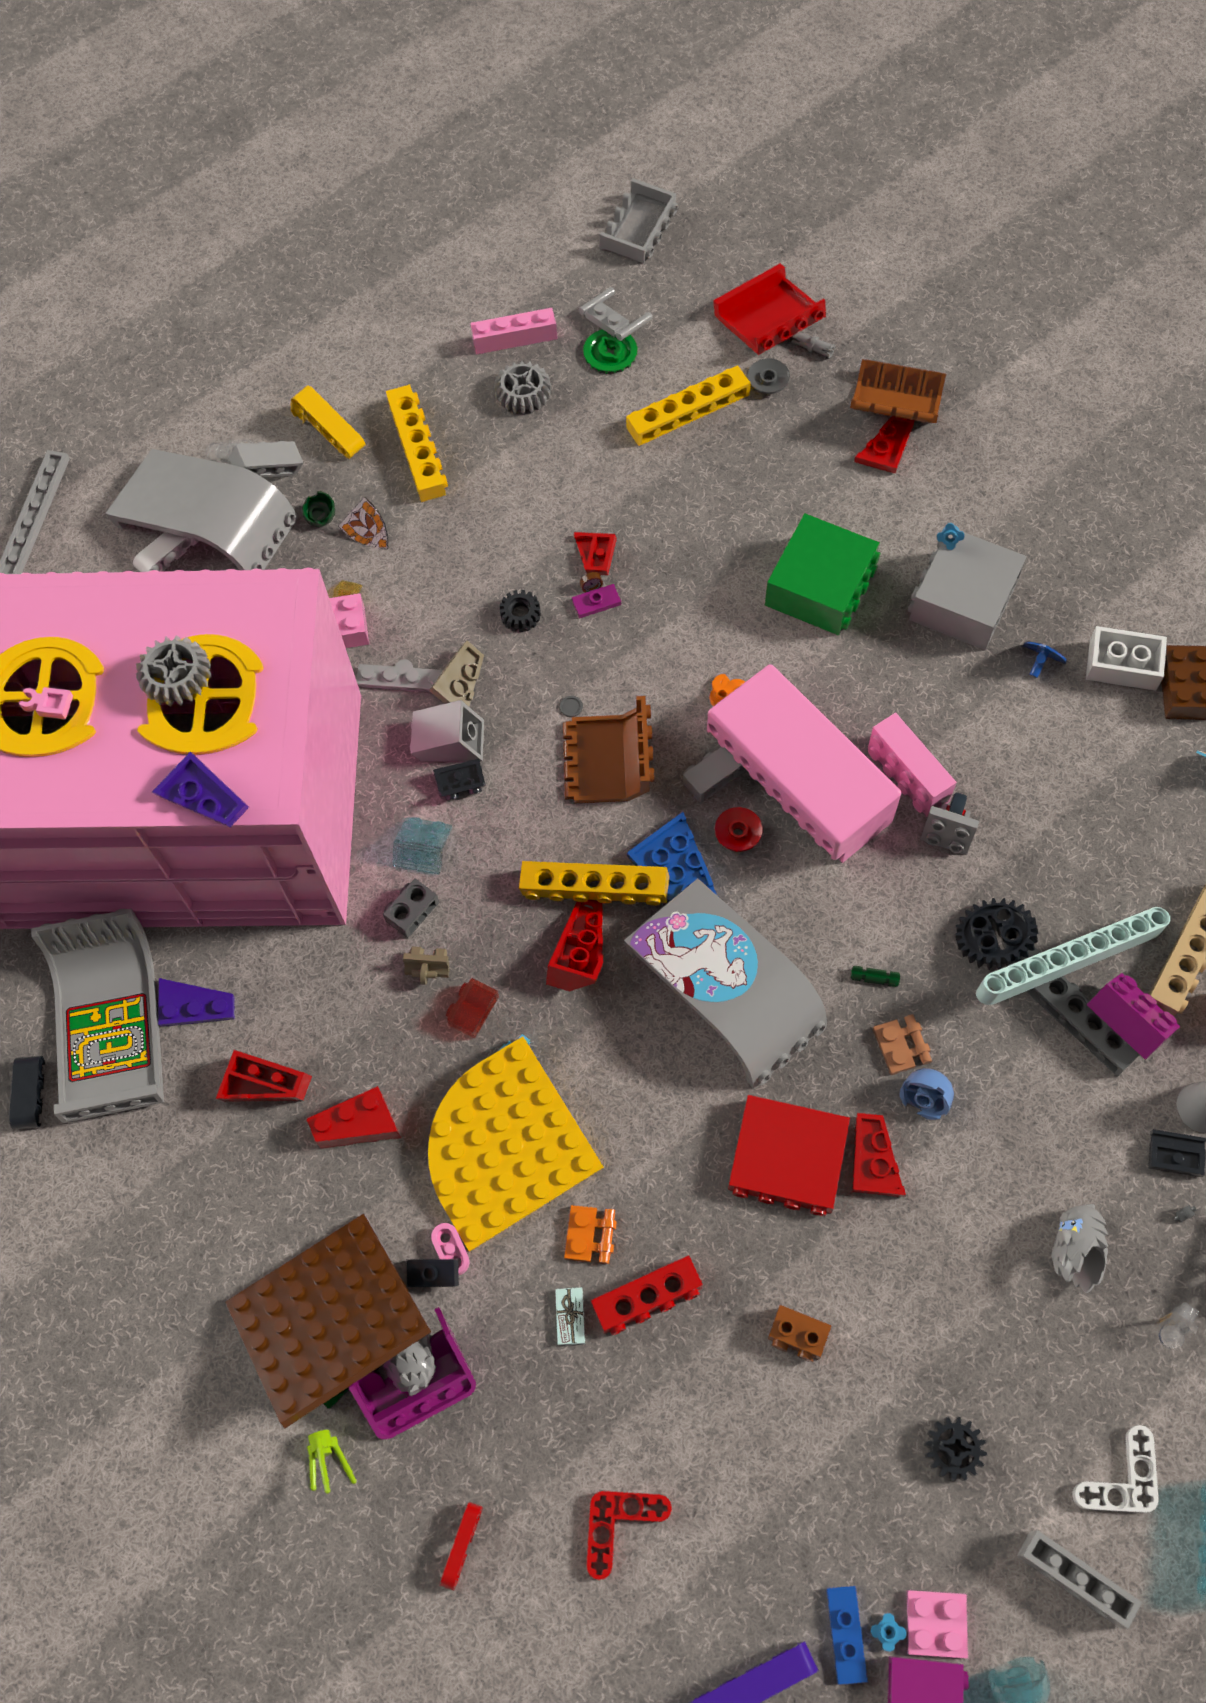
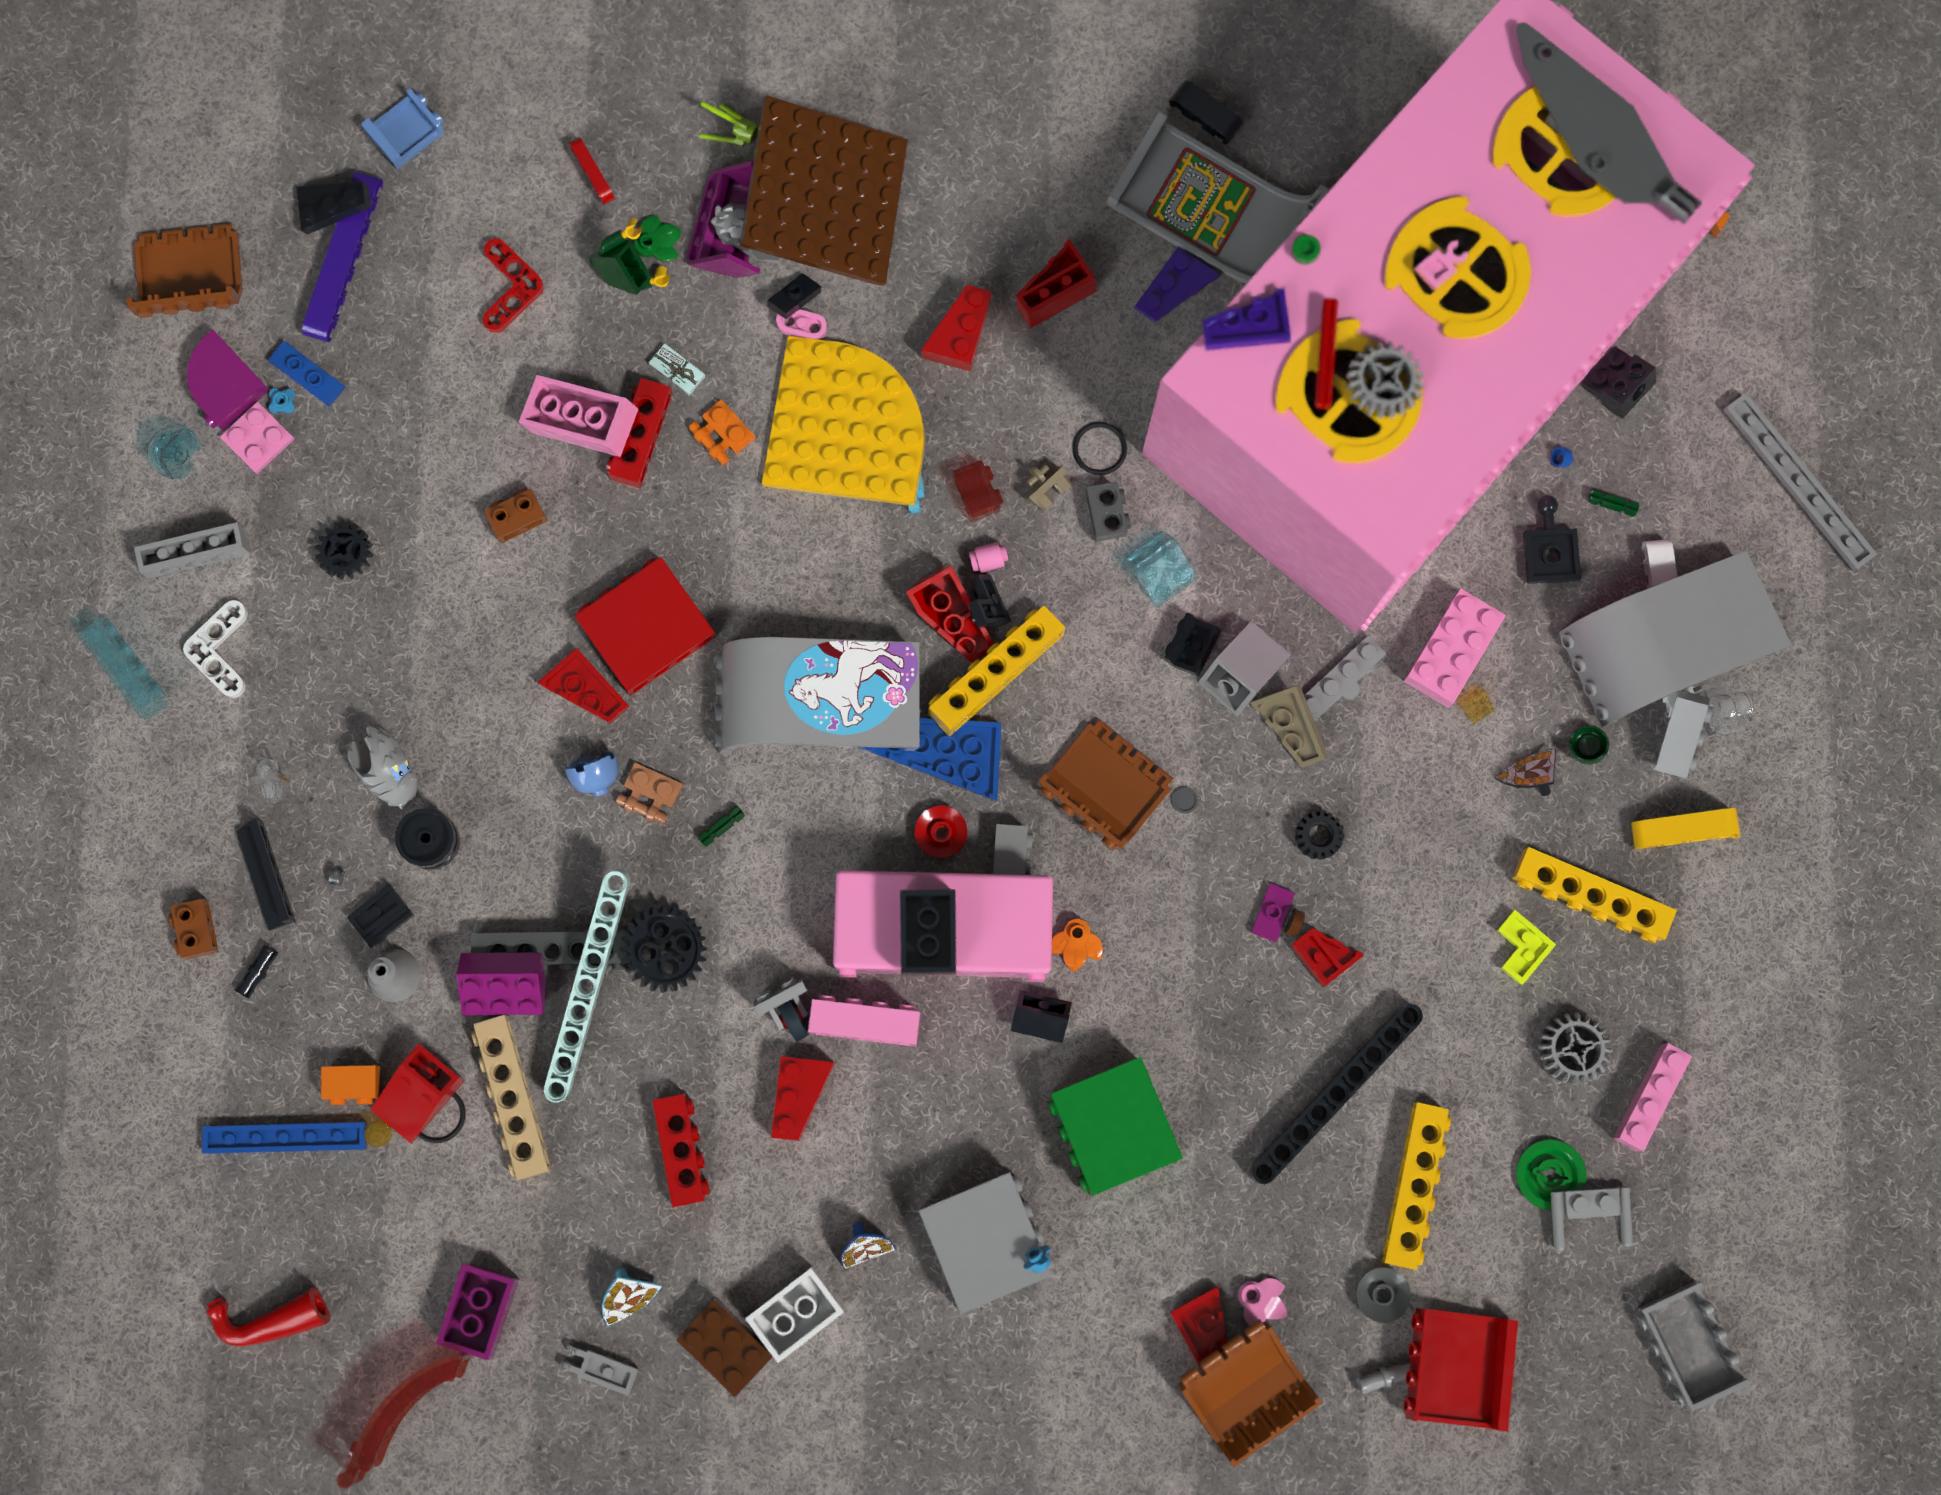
camera: 125 degrees right, 15 degrees up
(107, 804) = (1306, 249): none -> green tile
(182, 725) = (1326, 353): none -> red axle
(369, 976) = (1101, 425): none -> black tyre
(471, 1431) = (661, 239): none -> green plate
(482, 451) = (1530, 945): none -> neon yellow plate
(515, 959) = (988, 557): none -> bright pink brick
(522, 1434) = (621, 264): none -> dark green torso
(555, 920) = (988, 607): none -> black plate
(676, 482) = (1348, 1089): none -> black beam
(679, 1349) = (578, 415): none -> bright pink brick
(798, 669) = (1040, 1018): none -> black brick
(823, 742) = (928, 932): none -> black brick
(836, 430) = (1266, 1302): none -> bright pink plate
(996, 770) = (797, 1094): none -> red wedge
(1105, 1155) = (442, 844): none -> black wheel
(1128, 786) = (664, 1111): none -> red brick

